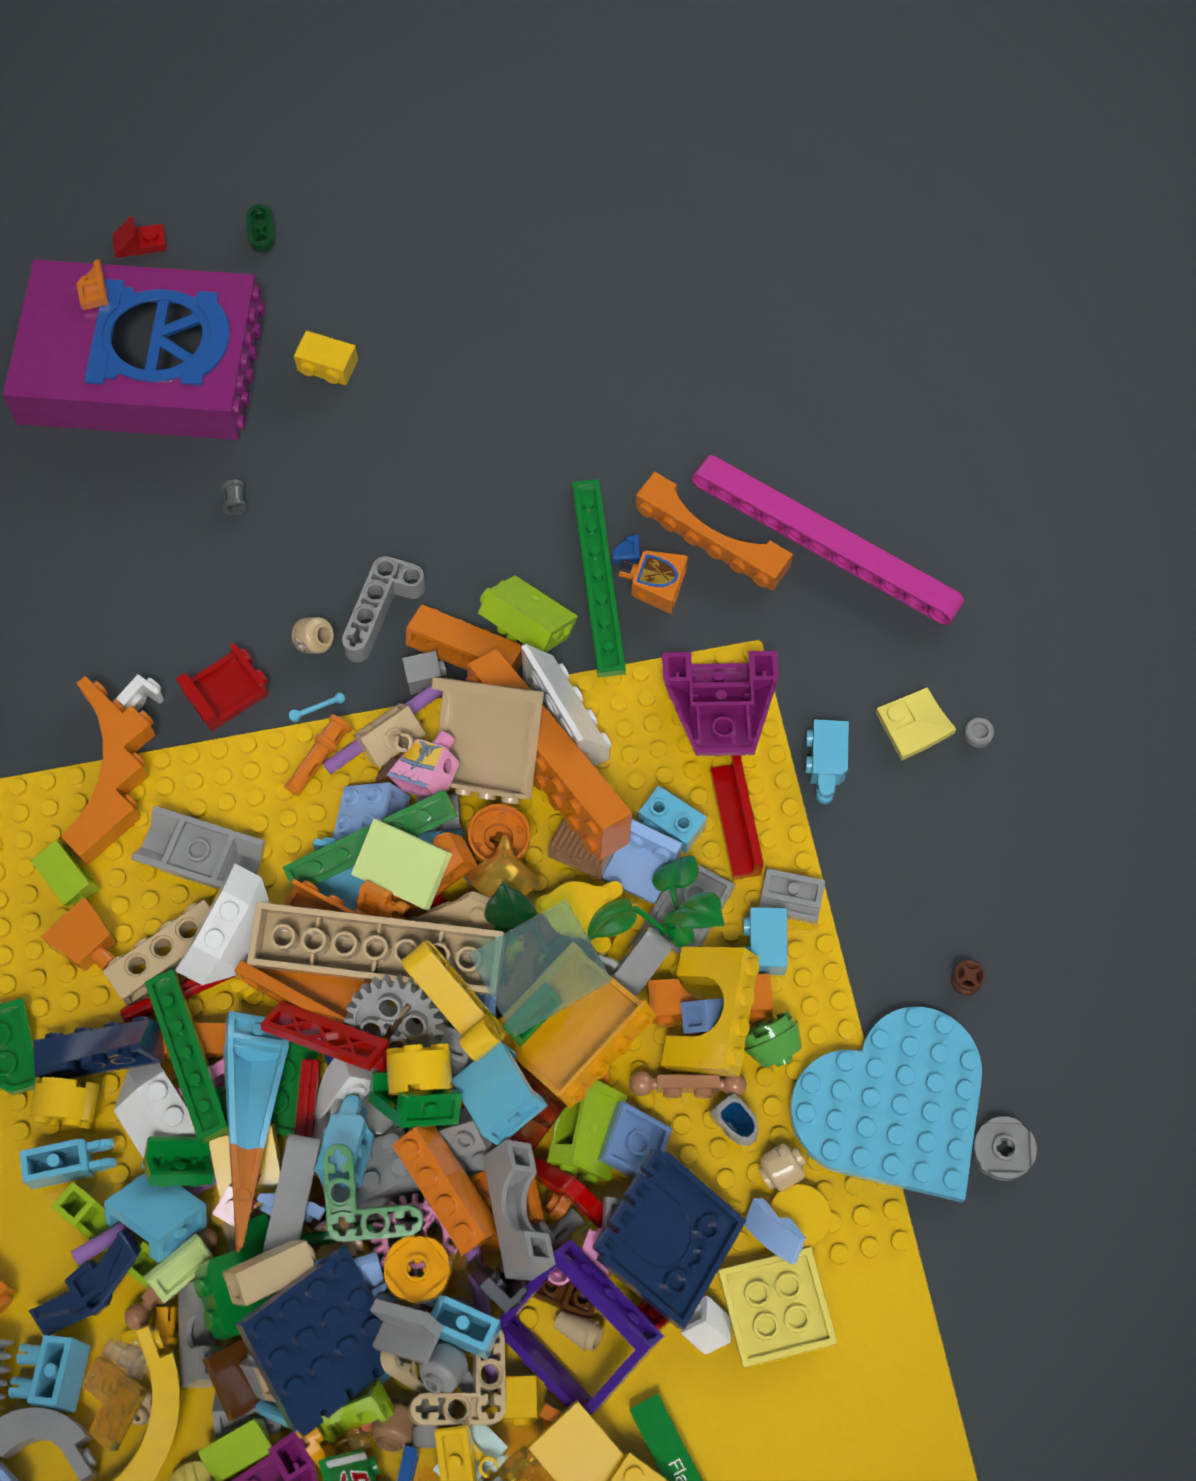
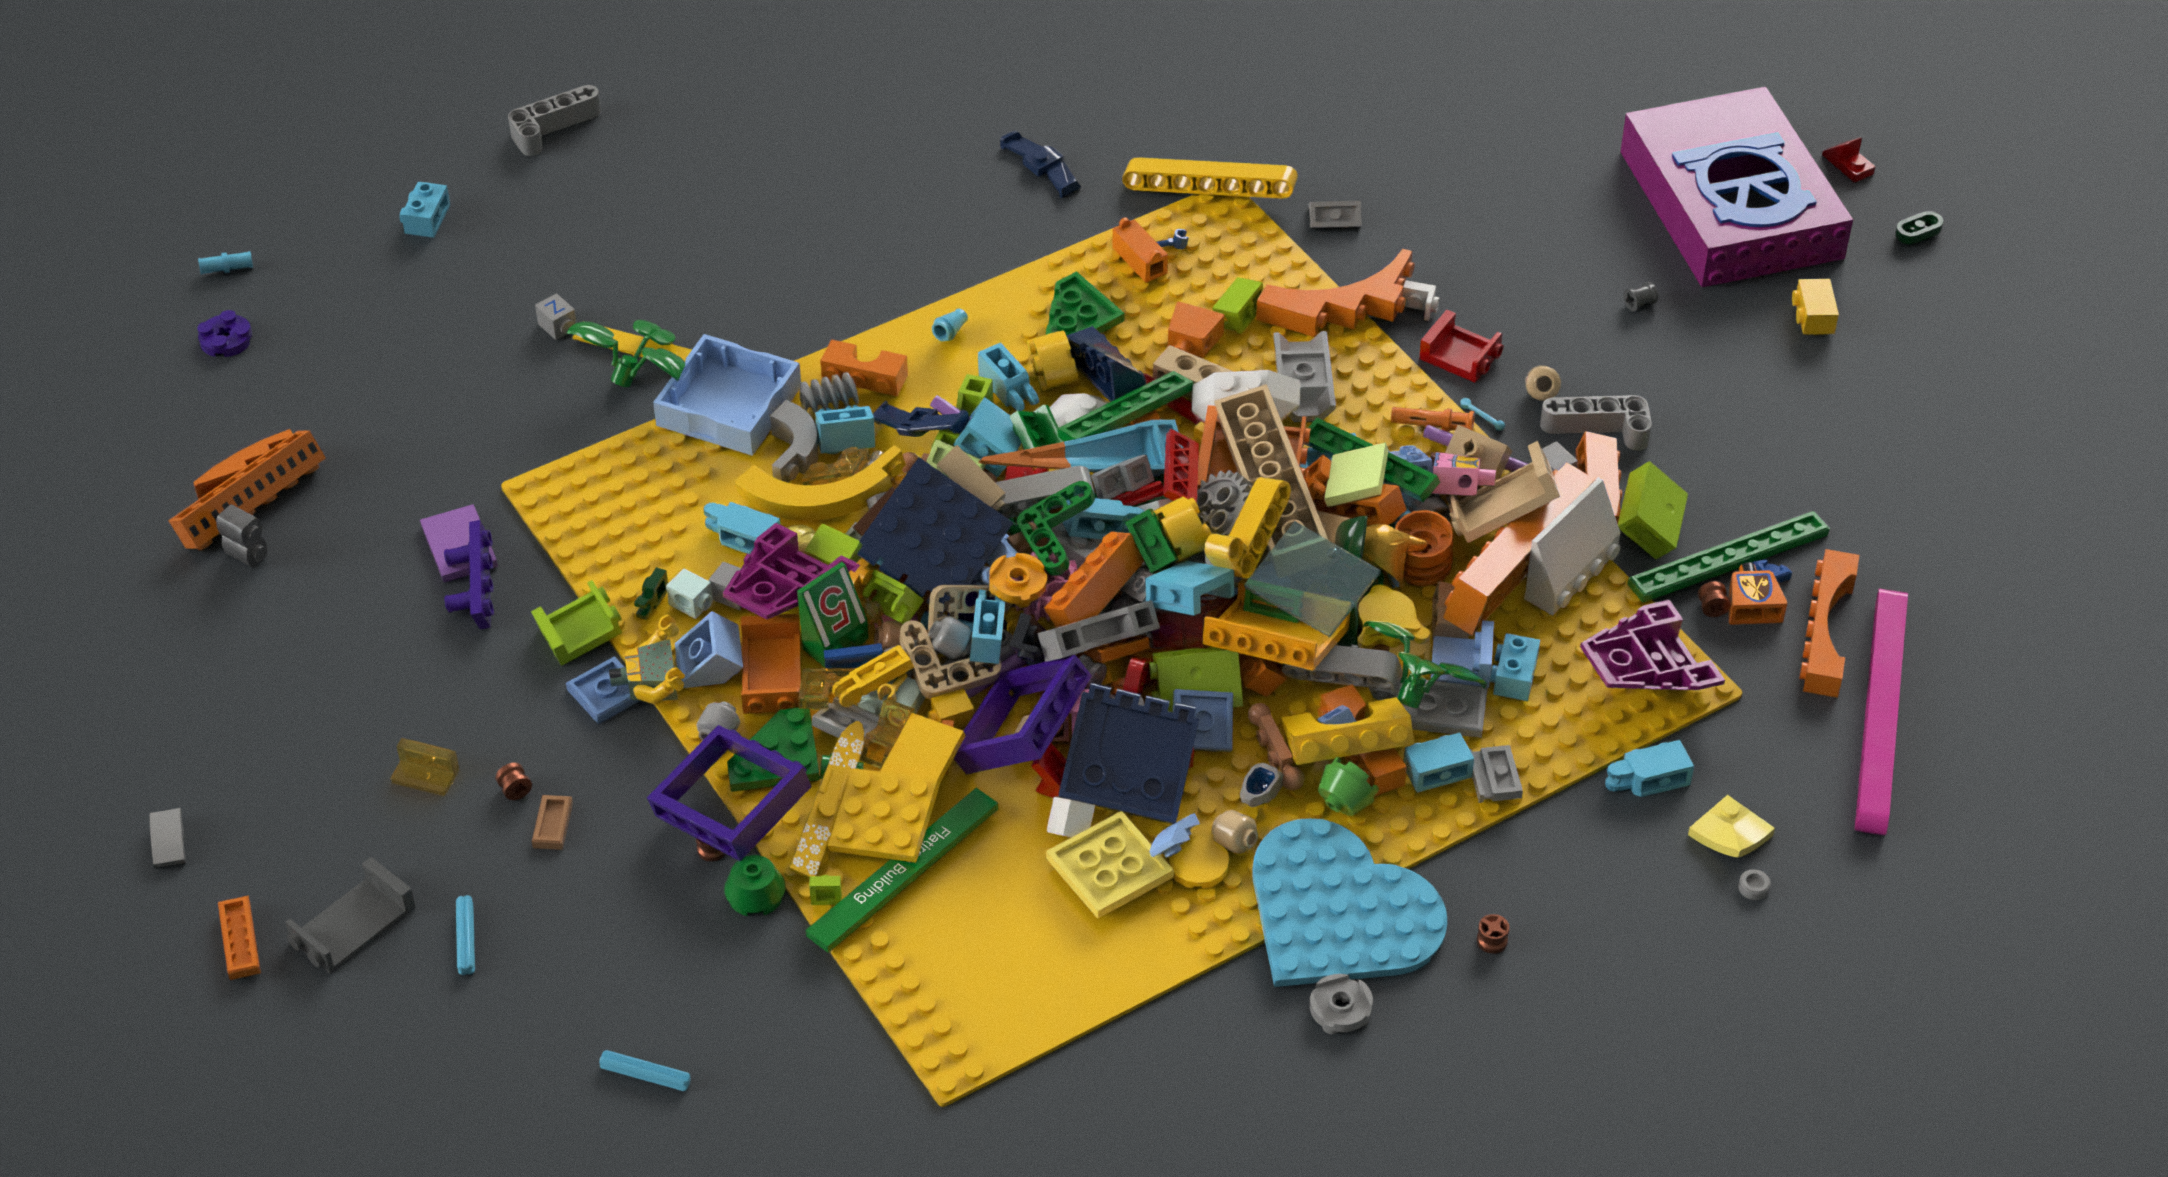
camera: 70 degrees right, 20 degrees down
(92, 288) = (1761, 125): orange tile -> none
(286, 1090) = (1123, 477): none -> light grey slope
(405, 1331) = (965, 588): light grey panel -> none
(647, 613) = (1714, 599): none -> copper wheel
(737, 820) = (1548, 715): red fence -> none

